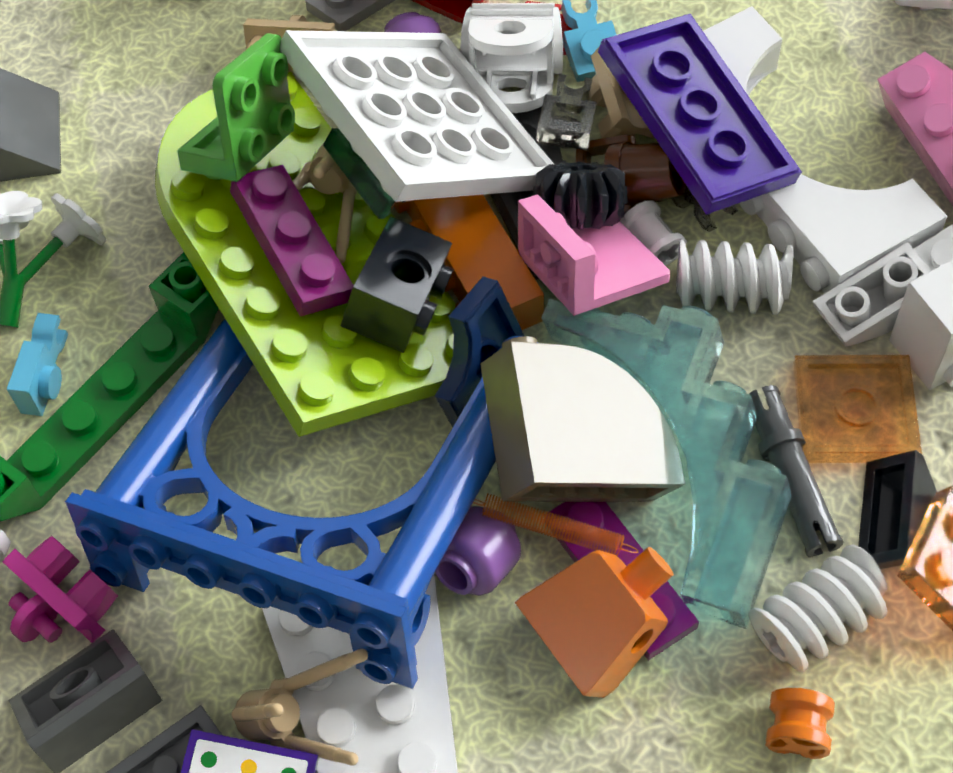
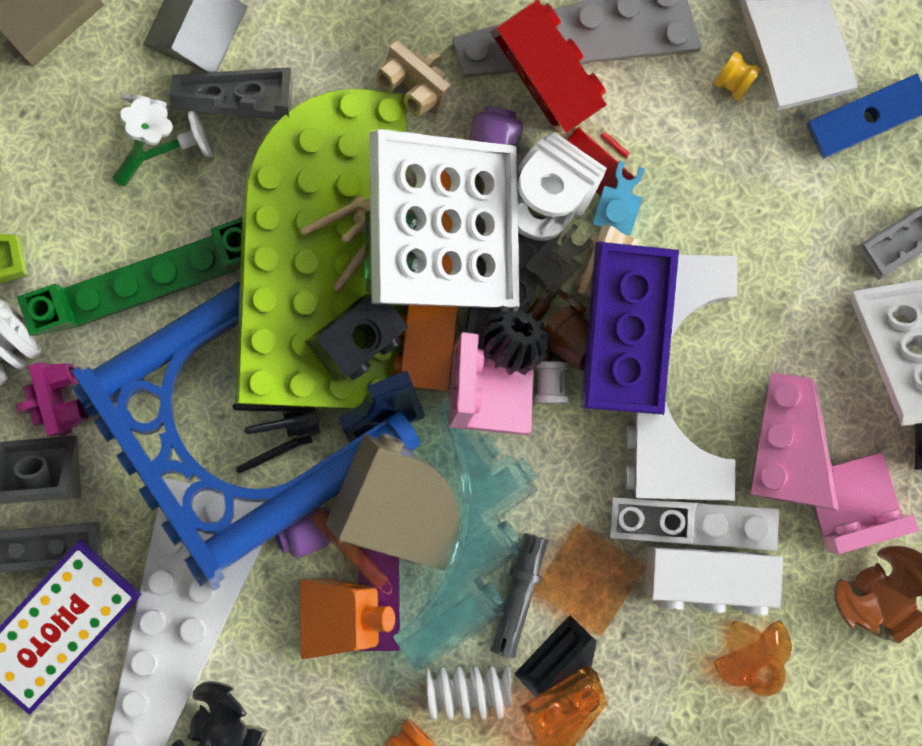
camera: 30 degrees right, 25 degrees up
(35, 371) = (117, 235): medium azure plate -> none
(94, 162) = (238, 93): none -> dark grey wing
(251, 114) = (322, 163): bright green bracket -> none
(275, 712) = (130, 552): tan plant -> none
(292, 240) = (309, 262): magenta plate -> none
(387, 442) = (298, 422): none -> black plant
(734, 276) = (577, 449): white piece -> none

